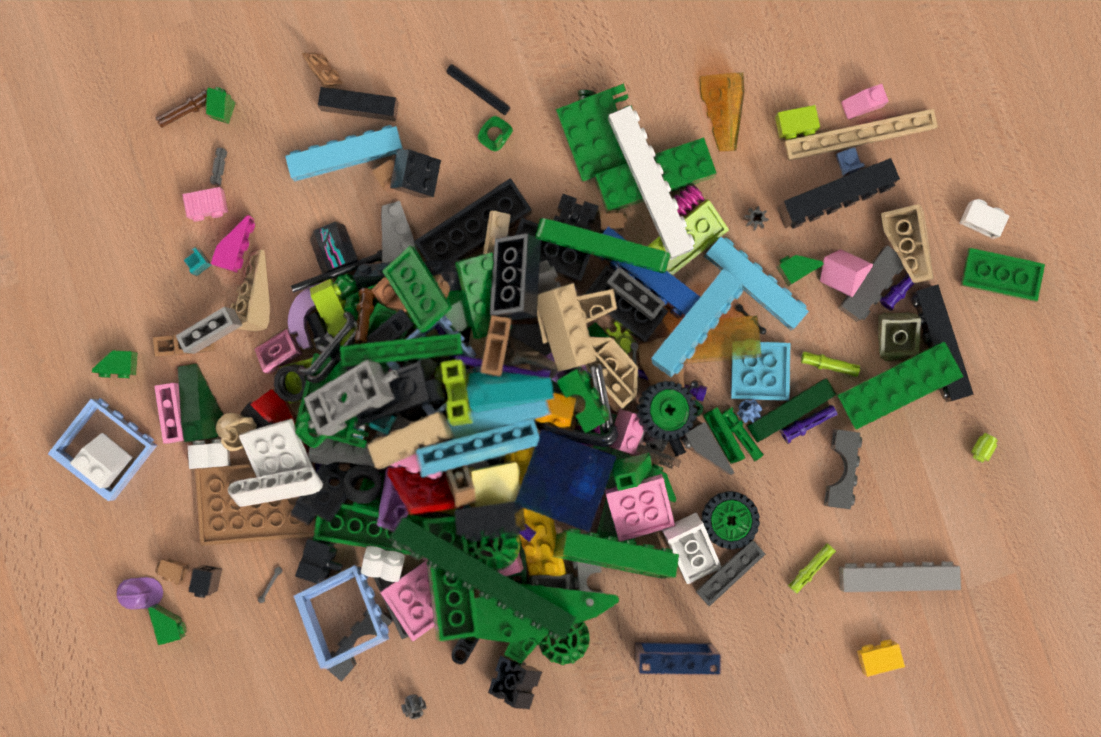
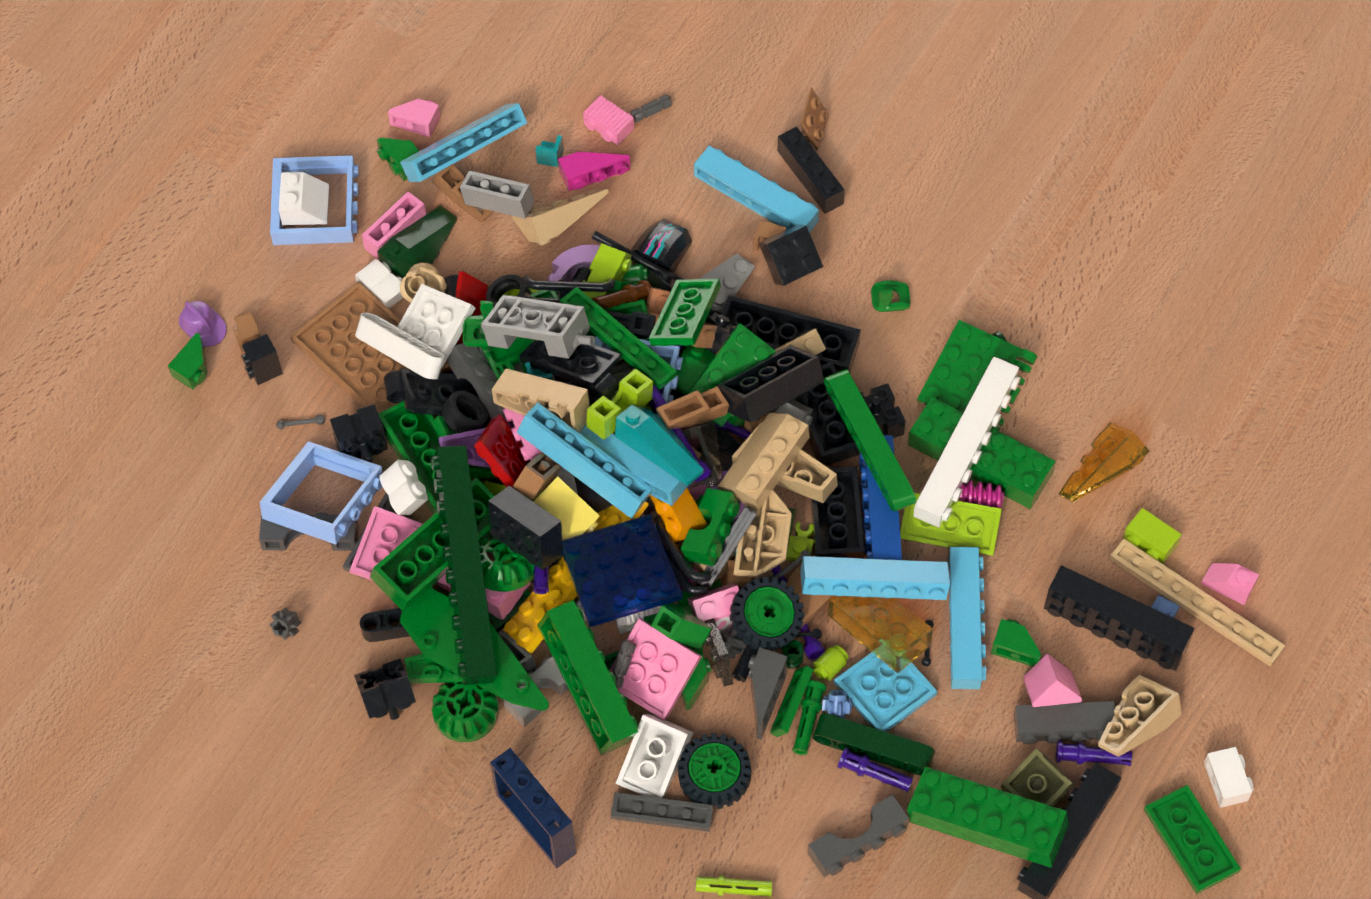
camera: 50 degrees right, 25 degrees down
(93, 328) = (416, 116): none -> bright pink slope
(144, 317) = (463, 142): none -> medium azure brick
(192, 104) = (685, 49): reddish brown pin -> none
(219, 105) = (706, 67): green slope -> none
(277, 352) = (524, 266): bright pink slope -> none
(478, 89) = (917, 255): black axle -> none
(612, 219) = (905, 450): medium nougat brick -> none
(622, 524) = (623, 661): none -> dark grey axle
(635, 293) = (851, 502): dark grey brick -> none
(718, 391) = (830, 662): none -> lime brick
(757, 212) = (1029, 564): dark grey gear -> none
(822, 361) = (947, 737): lime pin -> none

